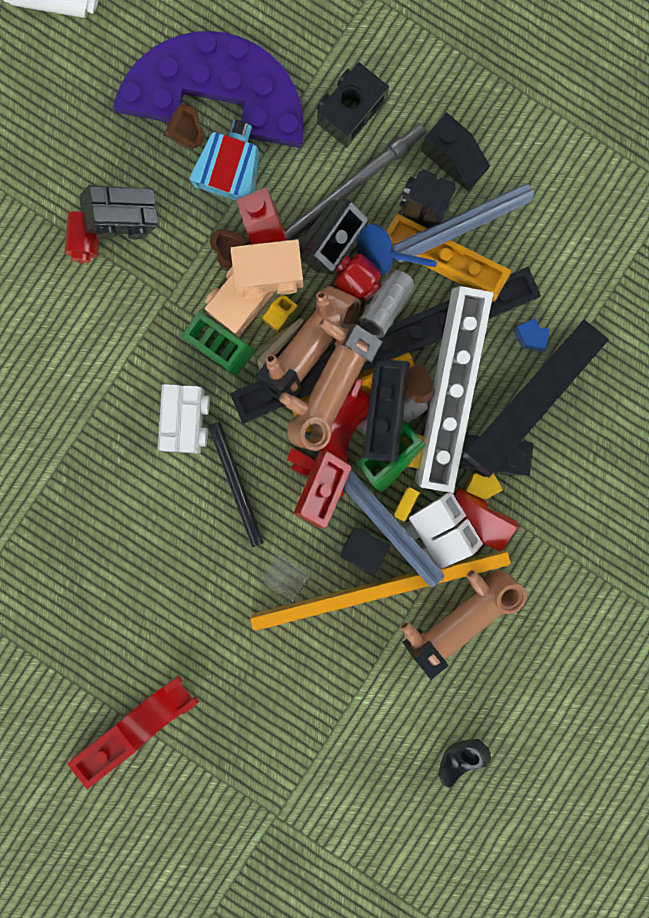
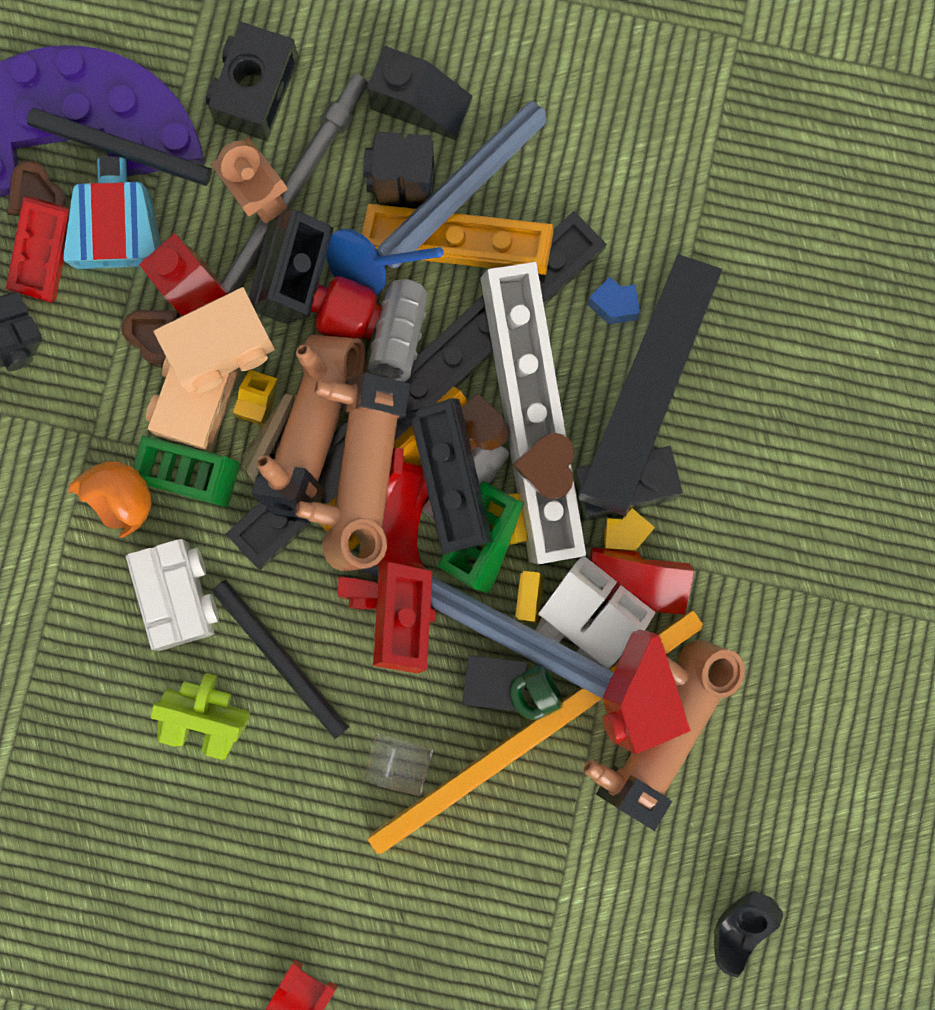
camera: 20 degrees left, 5 degrees down
(170, 343) = (115, 494): none -> orange hair
(175, 165) = (38, 249): none -> red plate
(175, 499) = (201, 710): none -> lime hips
(250, 117) = (119, 146): none -> black bar
(328, 170) = (251, 179): none -> nougat hips
(393, 565) = (542, 690): none -> dark green tile
(450, 427) = (547, 465): none -> reddish brown tile
(456, 596) = (643, 697): none -> red slope

